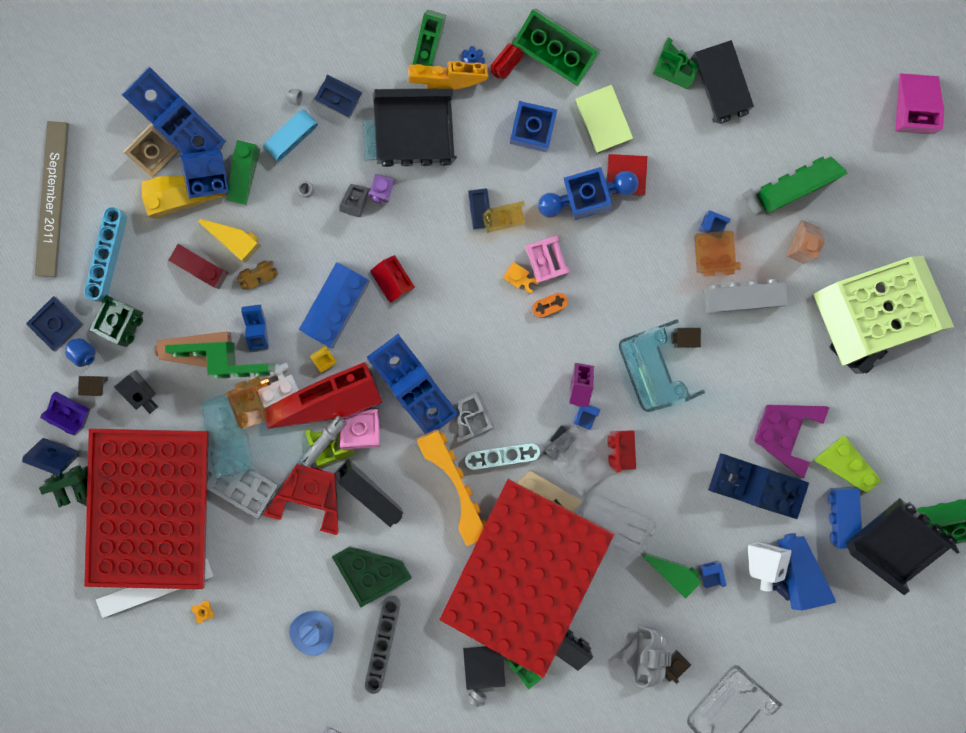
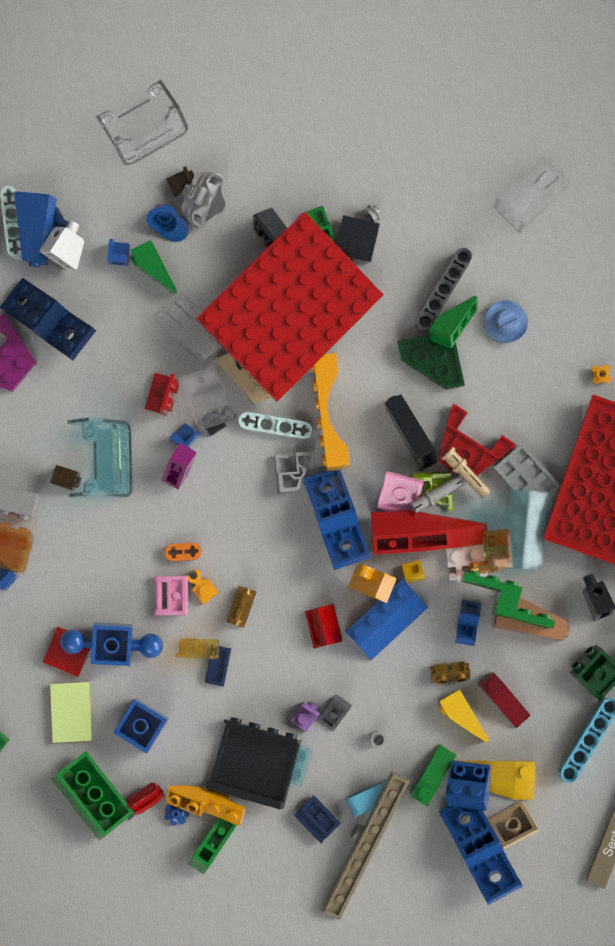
camera: 160 degrees left, 5 degrees down
(283, 86) = (365, 845): none -> dark tan tile
(310, 475) = (459, 465): none -> tan pin
(357, 333) = (372, 582): none -> light orange piece
(362, 614) = (453, 322): none -> green slope
(476, 271) = (241, 606): none -> pearl gold hinge
(674, 620) = (167, 223): none -> blue piece
(829, 569) = (10, 222): none -> light aqua beam

